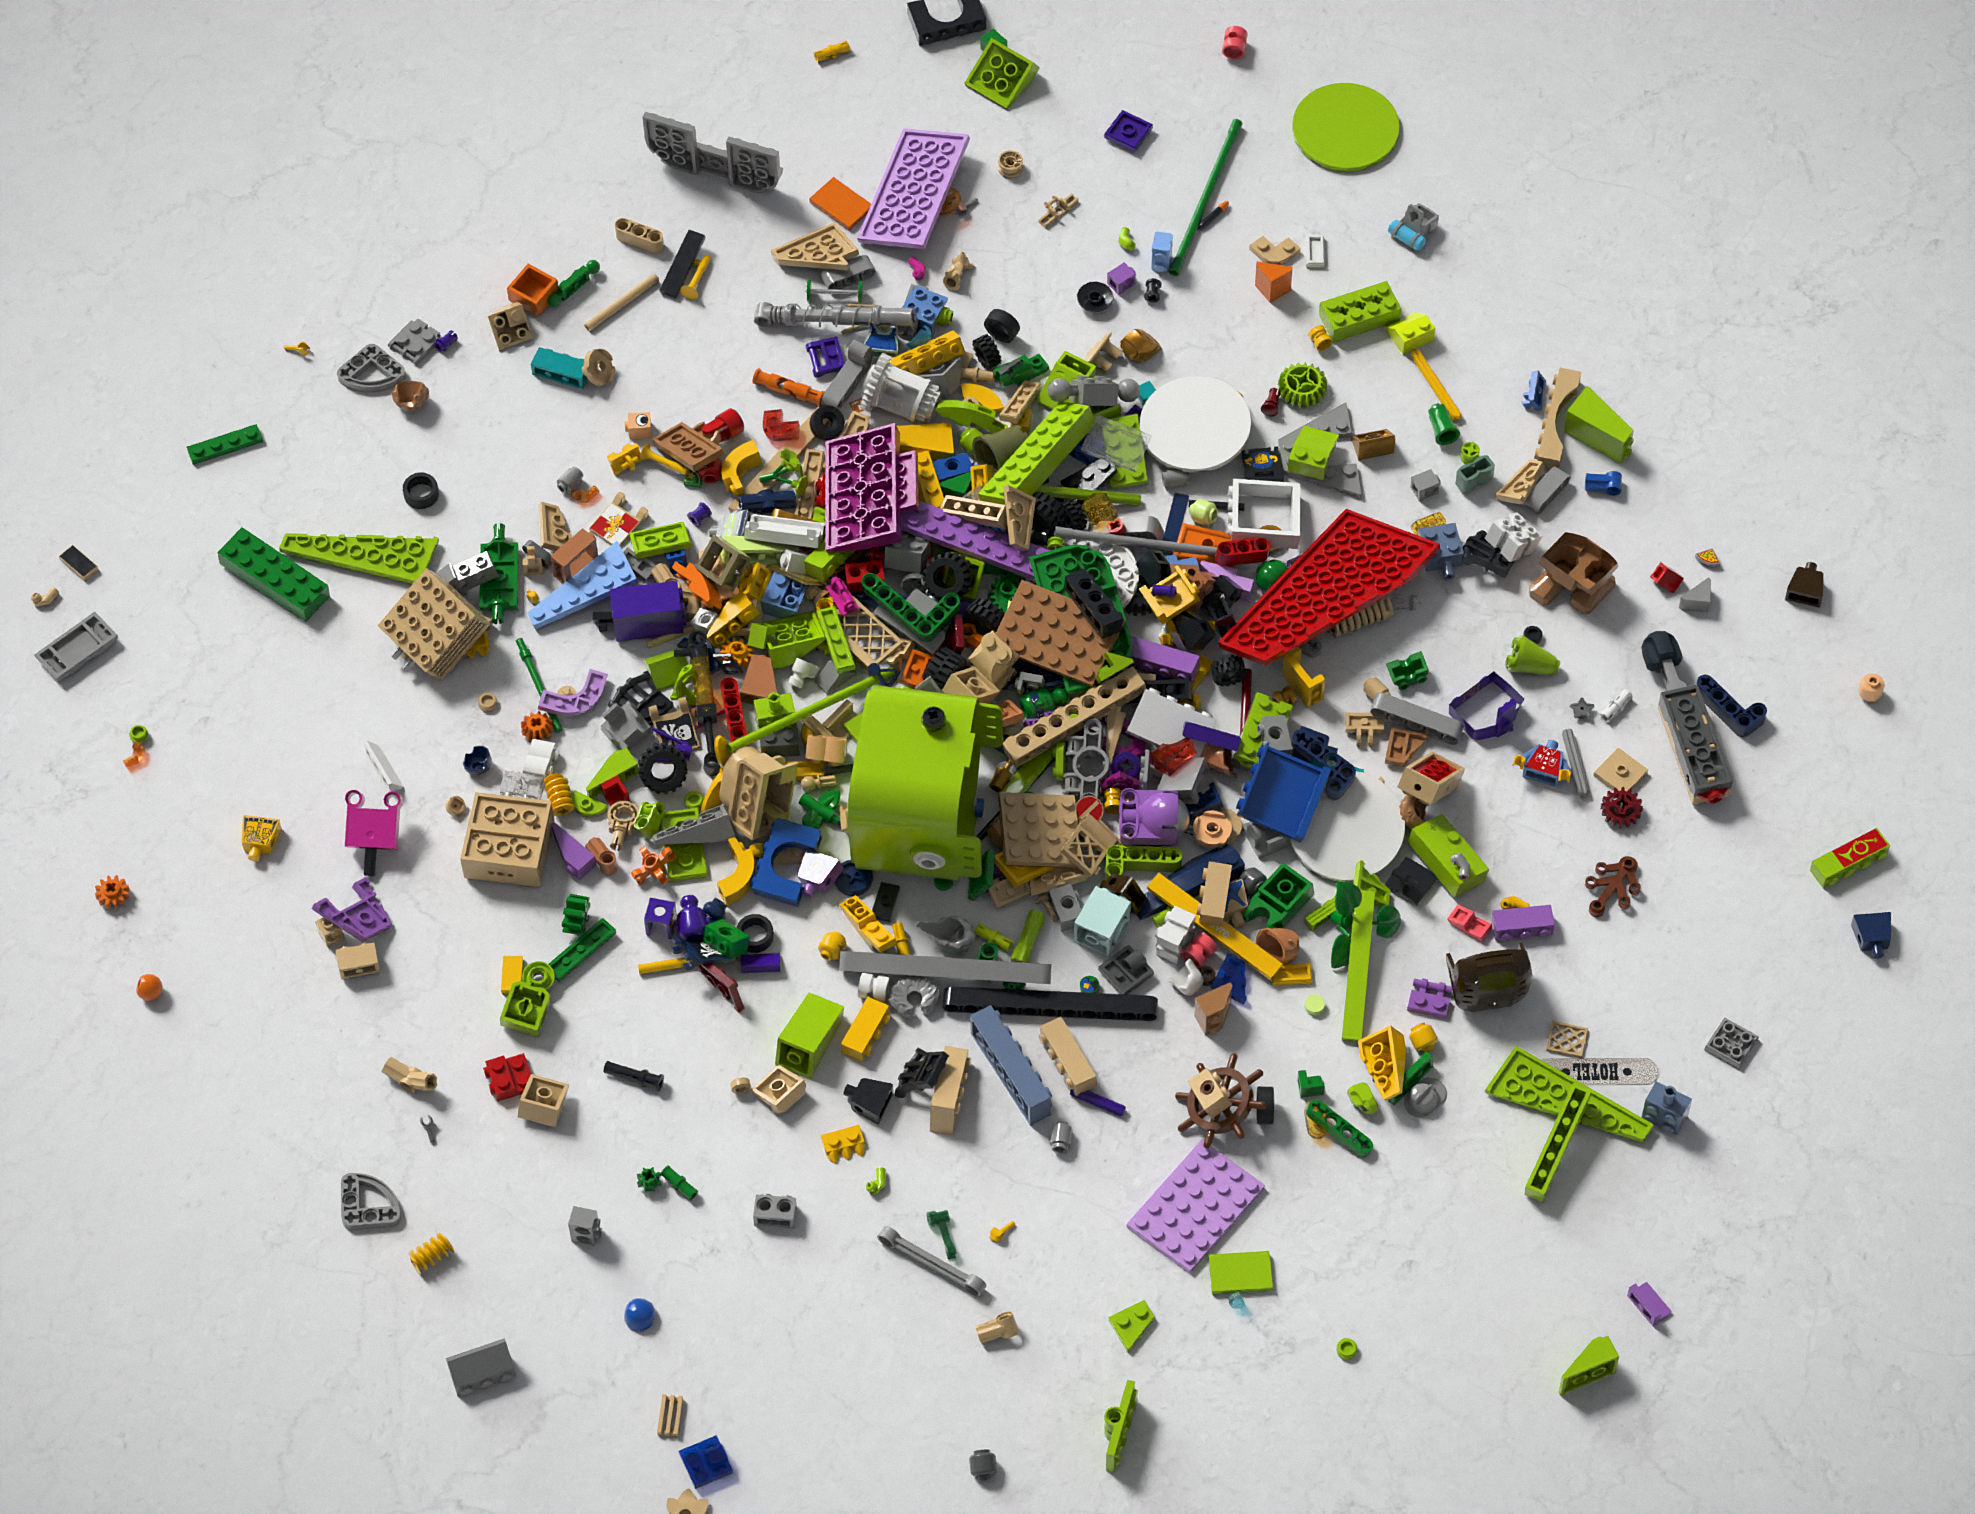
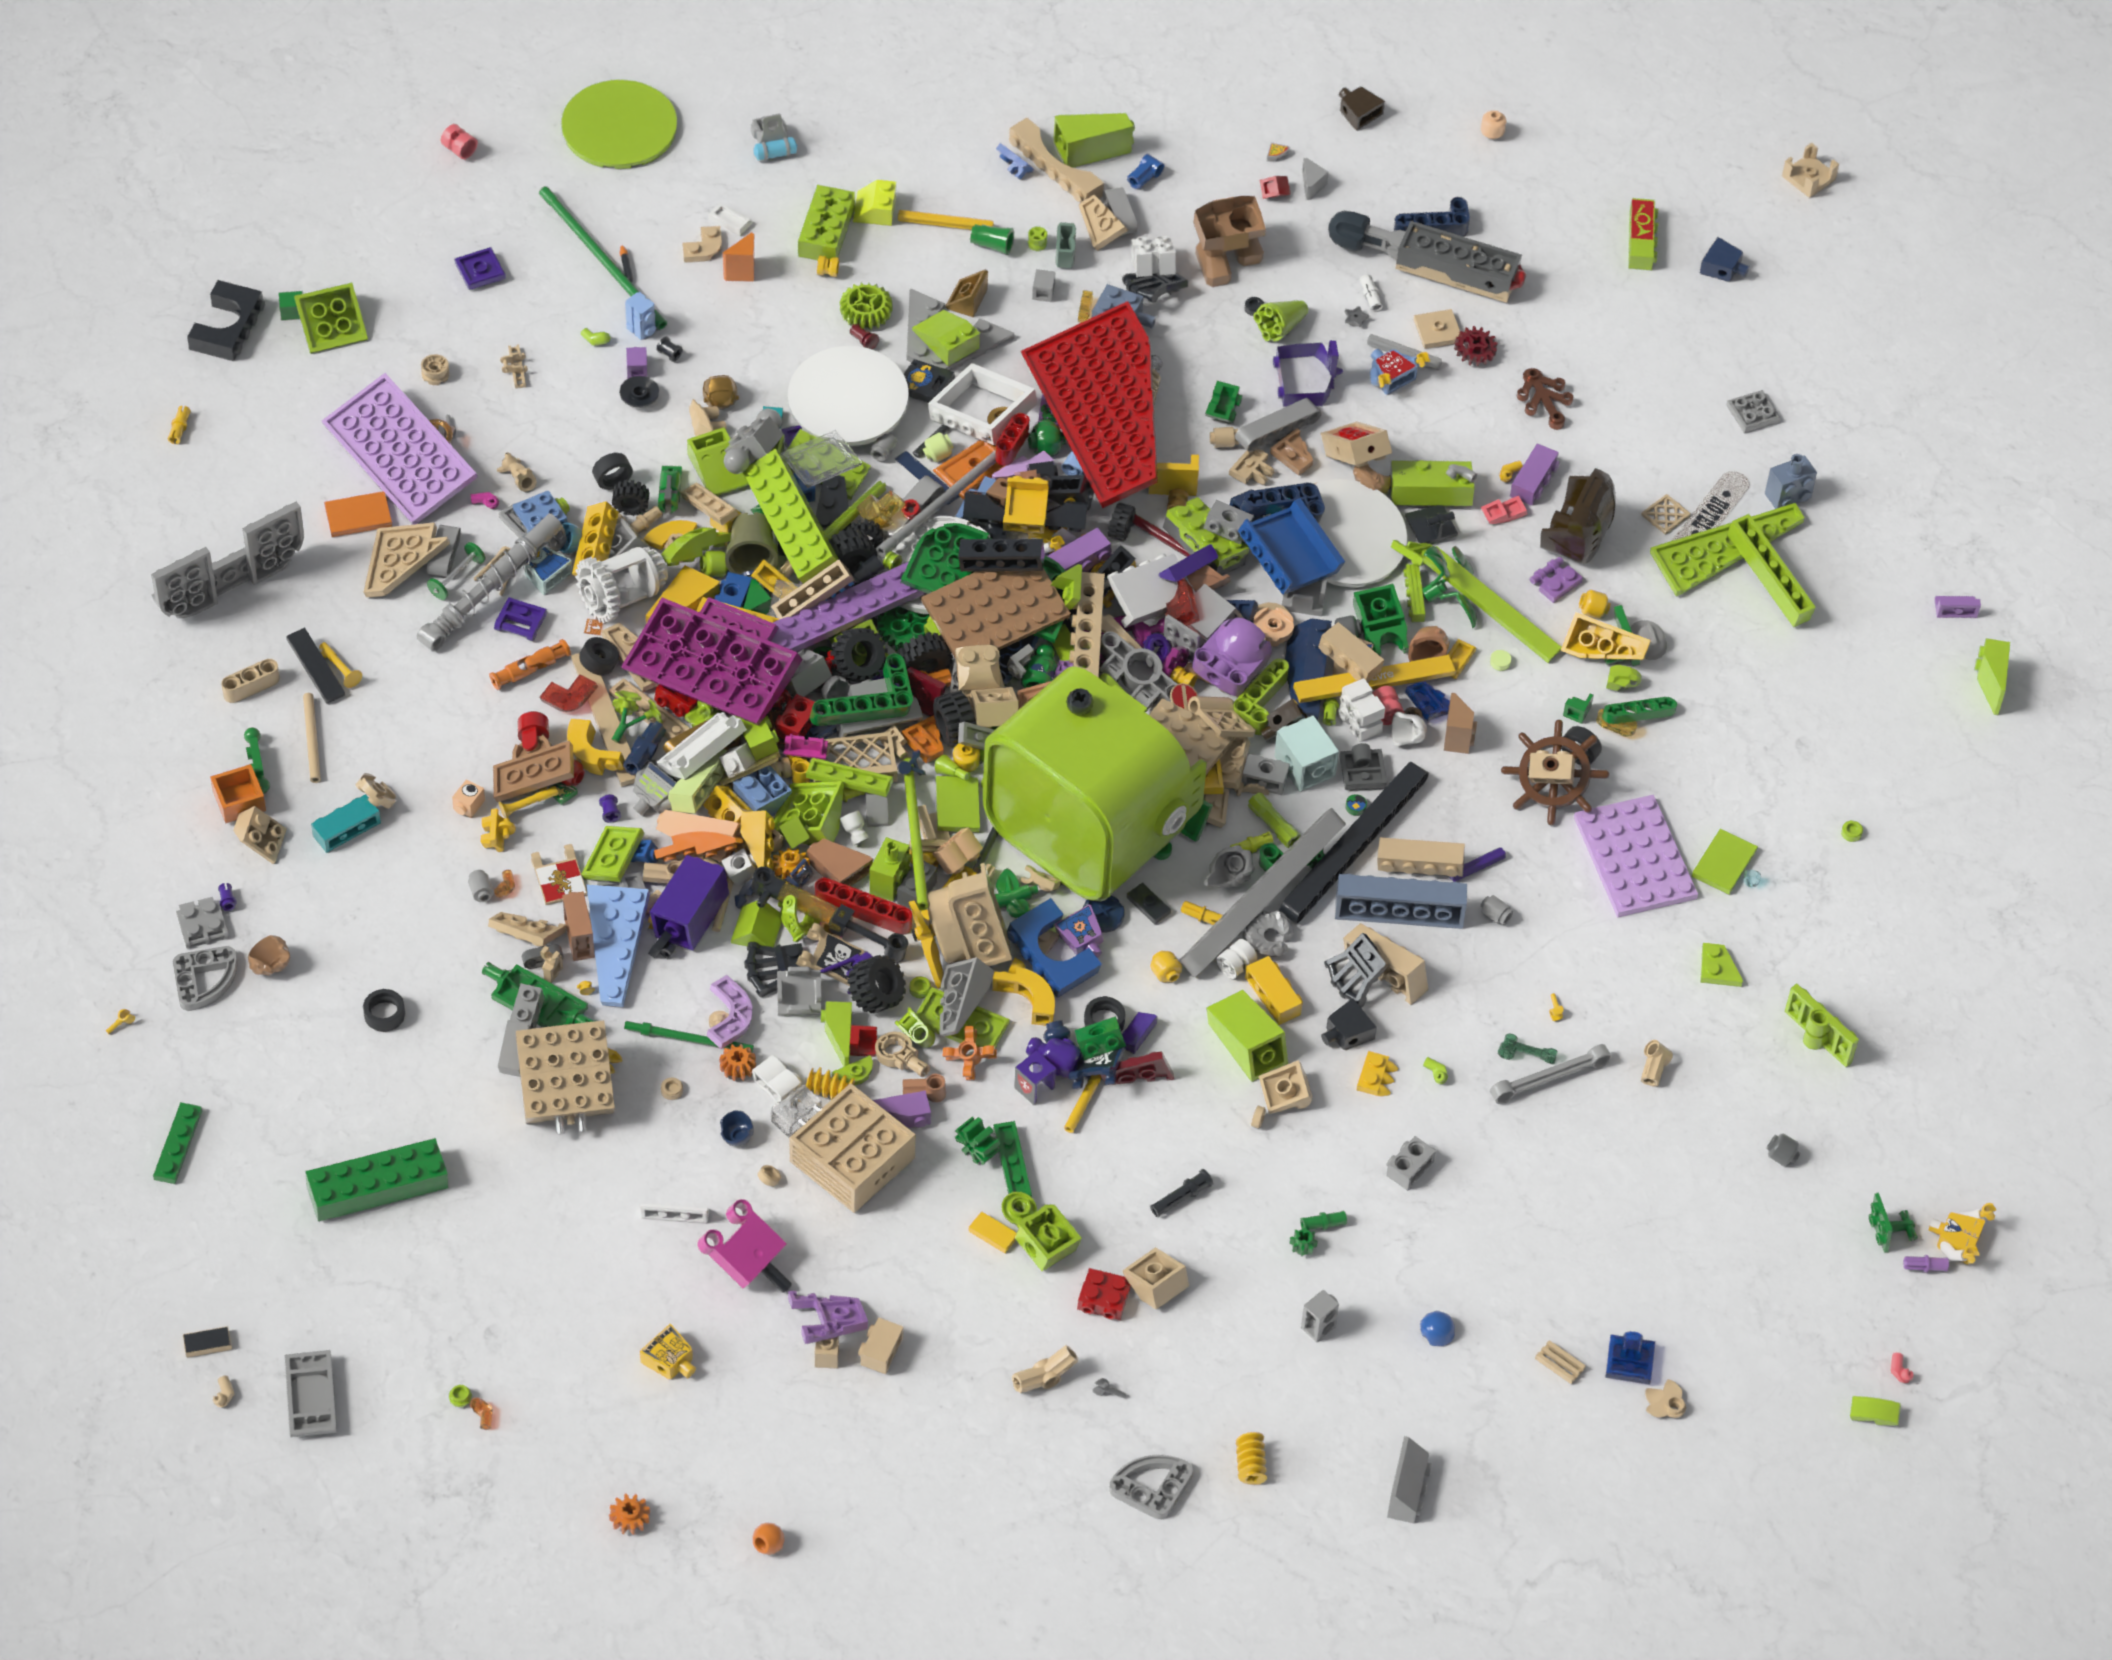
camera: 60 degrees left, 5 degrees down
(373, 554) = (433, 1080): lime wing -> none
(738, 561) = (725, 799): dark tan window -> none
(849, 376) = (559, 611): light grey beam -> none
(867, 925) = (1164, 929): yellow slope -> none
(1019, 516) = (850, 556): tan wing -> none
(1164, 590) = (1020, 505): dark purple pin -> none

